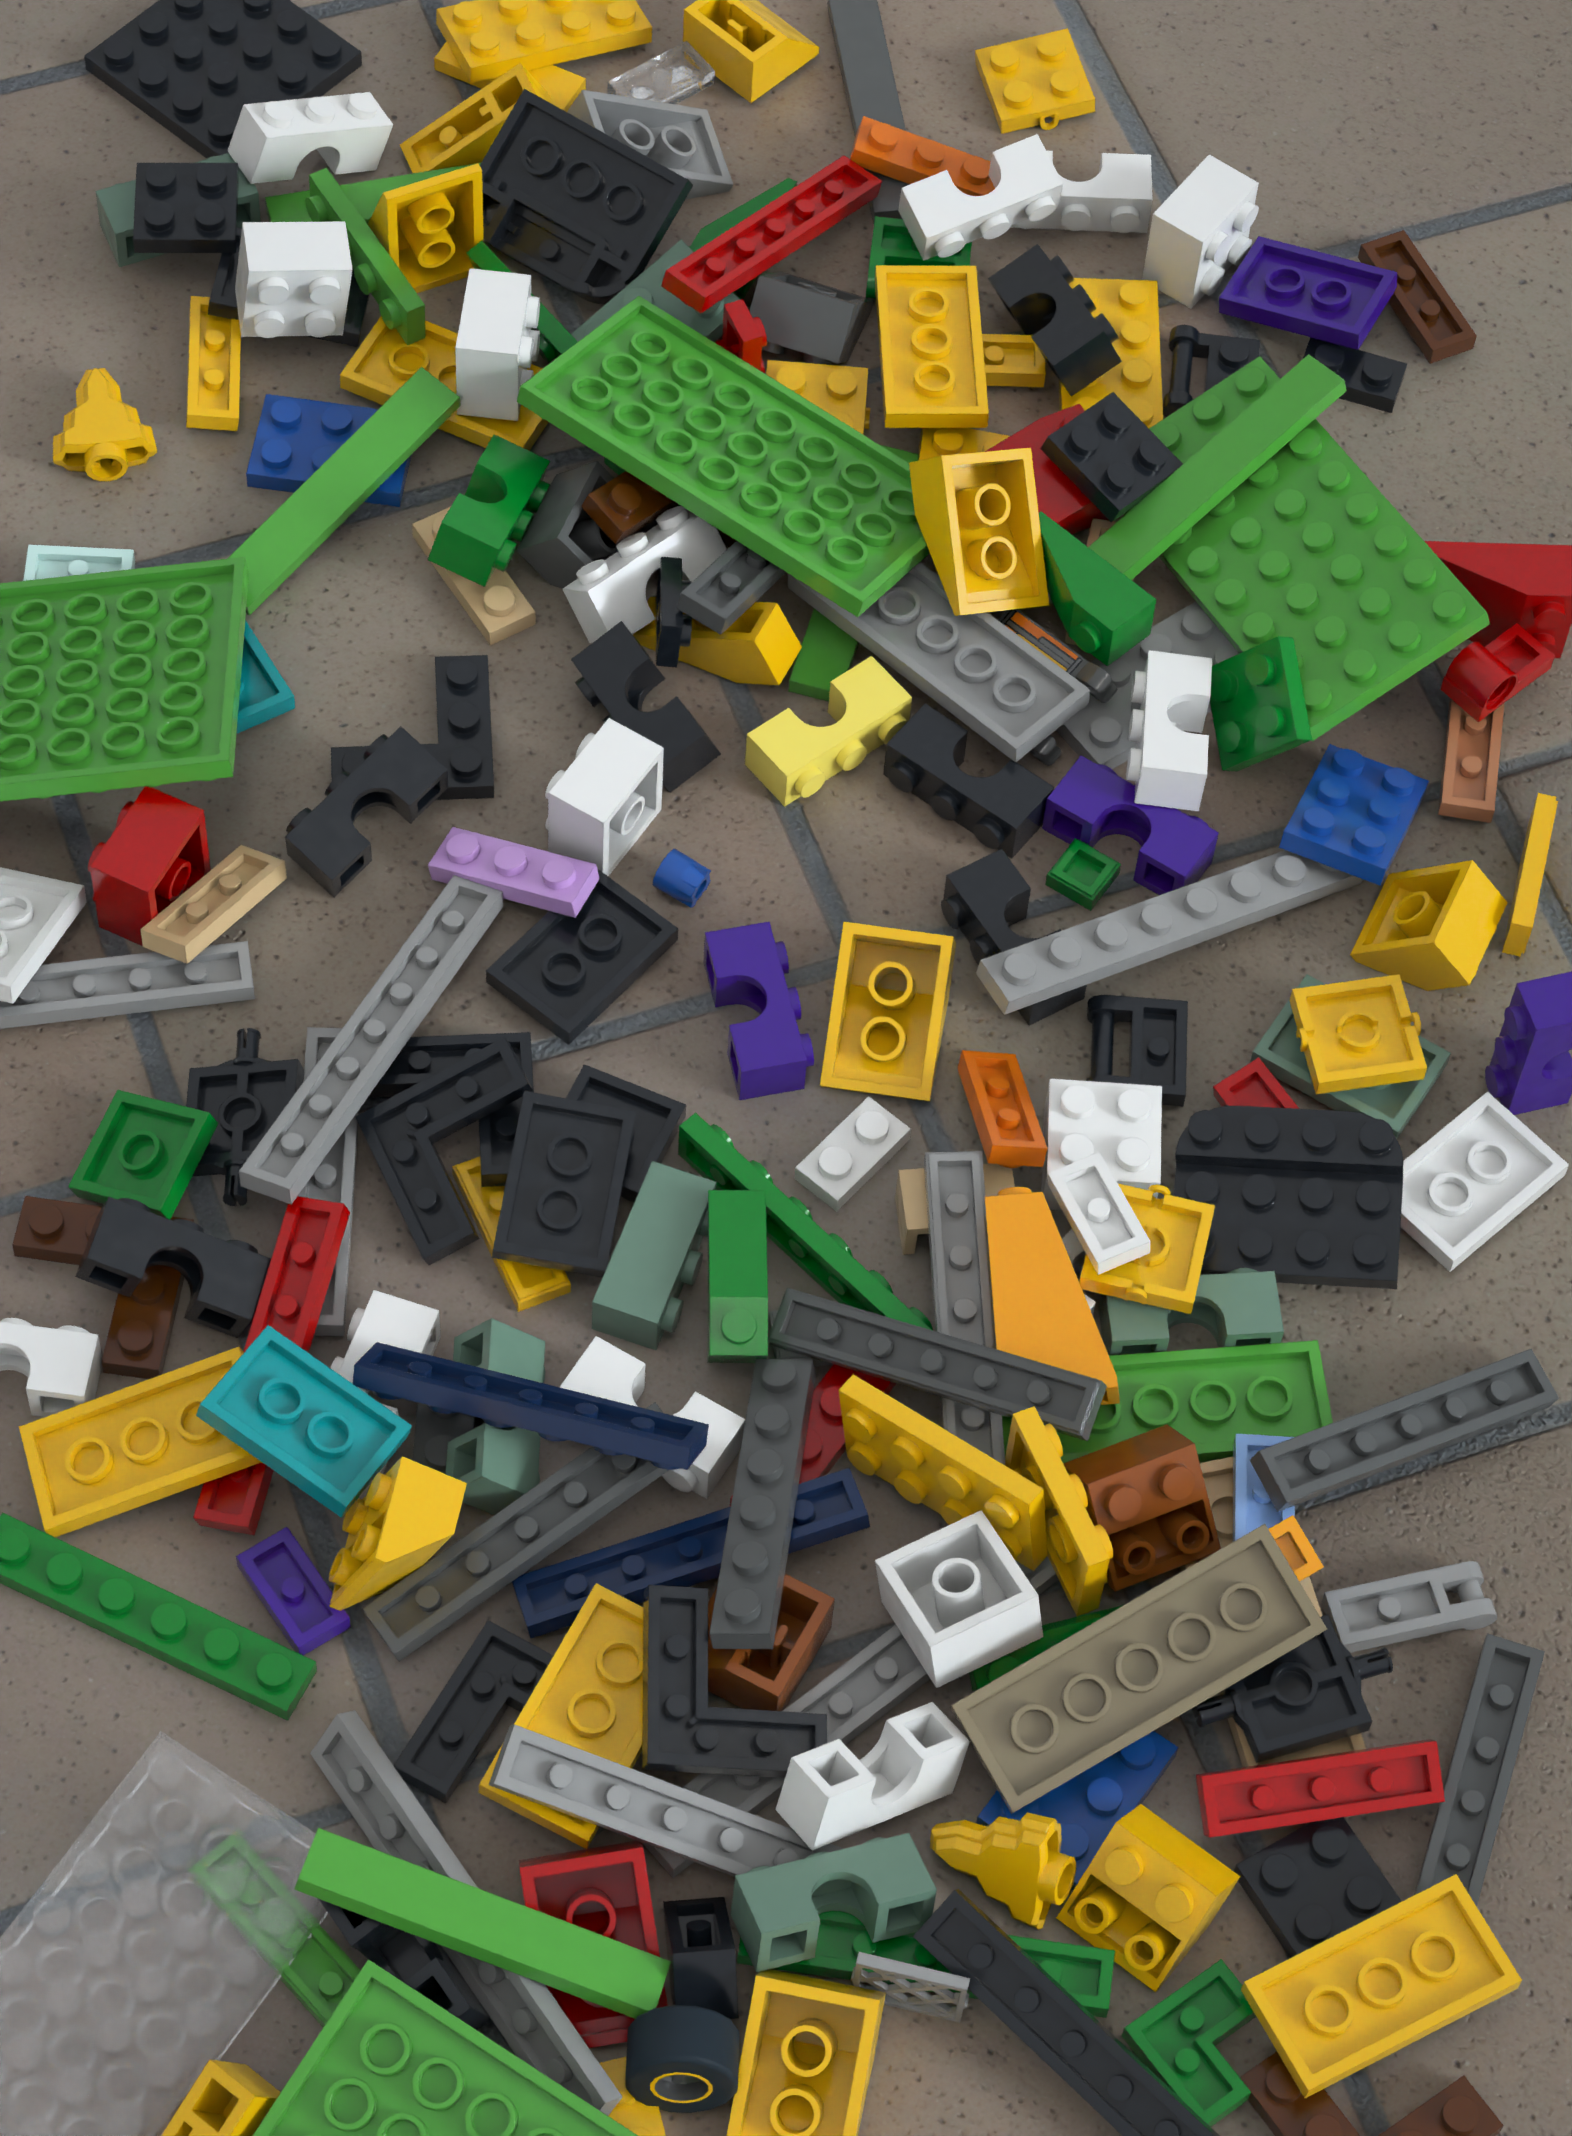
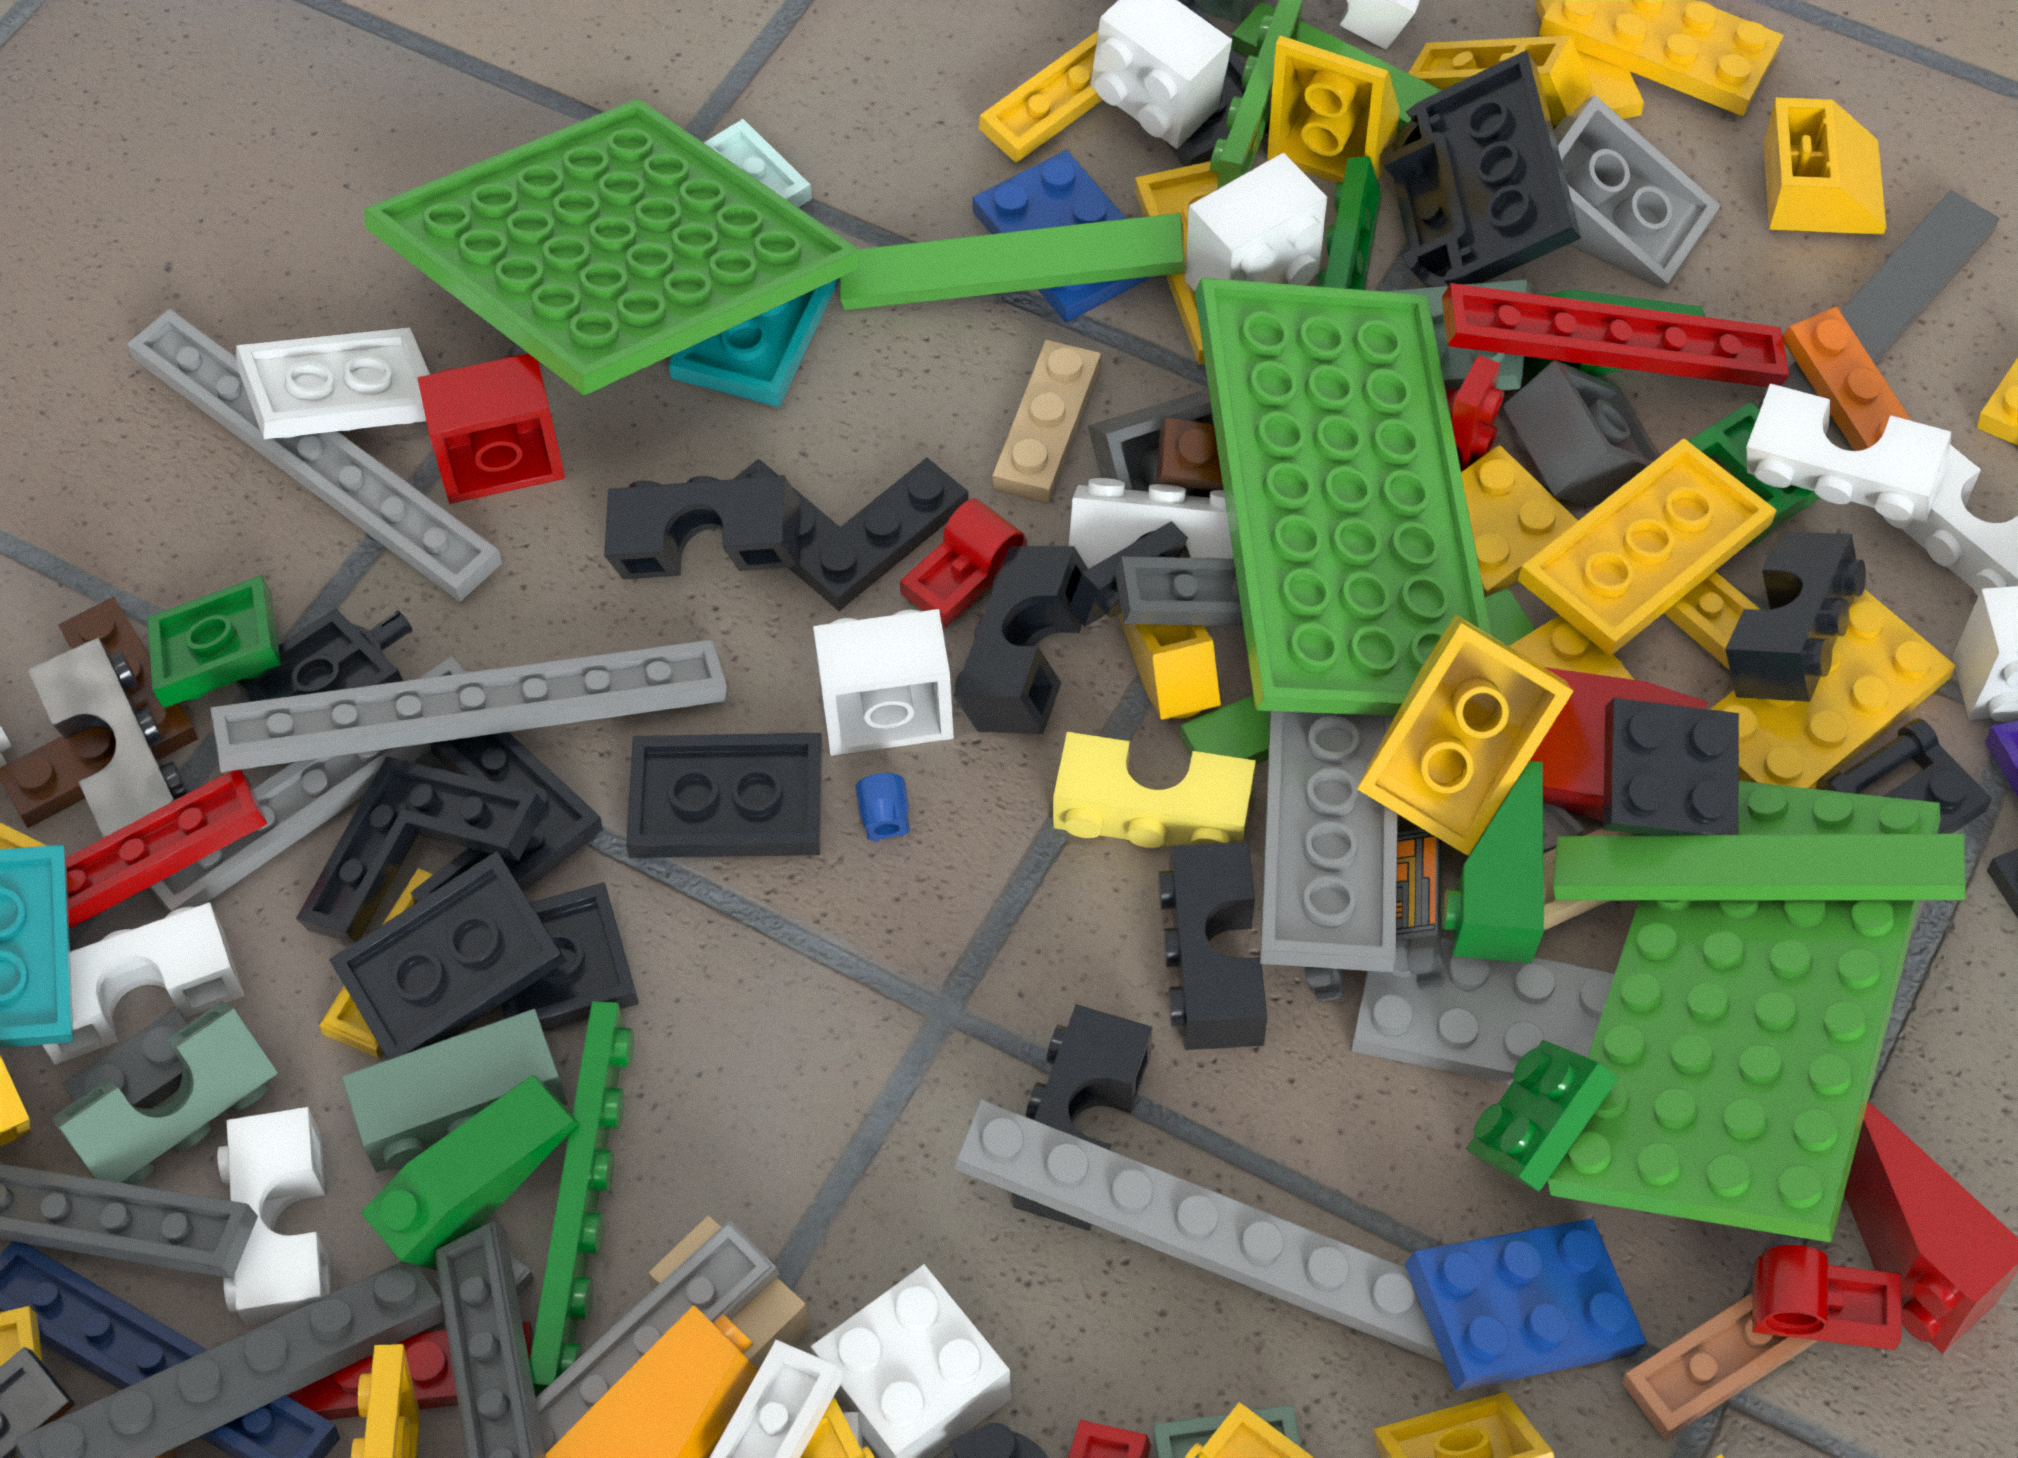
camera: 55 degrees right, 0 degrees up
(102, 431) = (911, 80): yellow rock -> none
(213, 904) = (508, 498): tan plate -> none
(493, 511) = (1059, 387): green arch -> none
(517, 870) = (757, 679): lavender plate -> none
(531, 1405) = (156, 1113): dark blue plate -> none
(545, 698) = (963, 563): none -> red plate
(666, 77) = (1711, 151): clear plate -> none
(749, 970) = (765, 1013): dark purple arch -> none
(852, 1153) = (722, 1168): white plate -> none
(888, 1011) = (896, 1074): yellow slope -> none
(1002, 1109) = (861, 1251): orange plate -> none
(1083, 874) = (1223, 1121): green tile -> none
(1099, 803) = (1299, 1067): dark purple arch -> none
(1155, 1046) = (1073, 1338): black plate -> none
(1172, 700) = (1465, 1030): white arch -> none

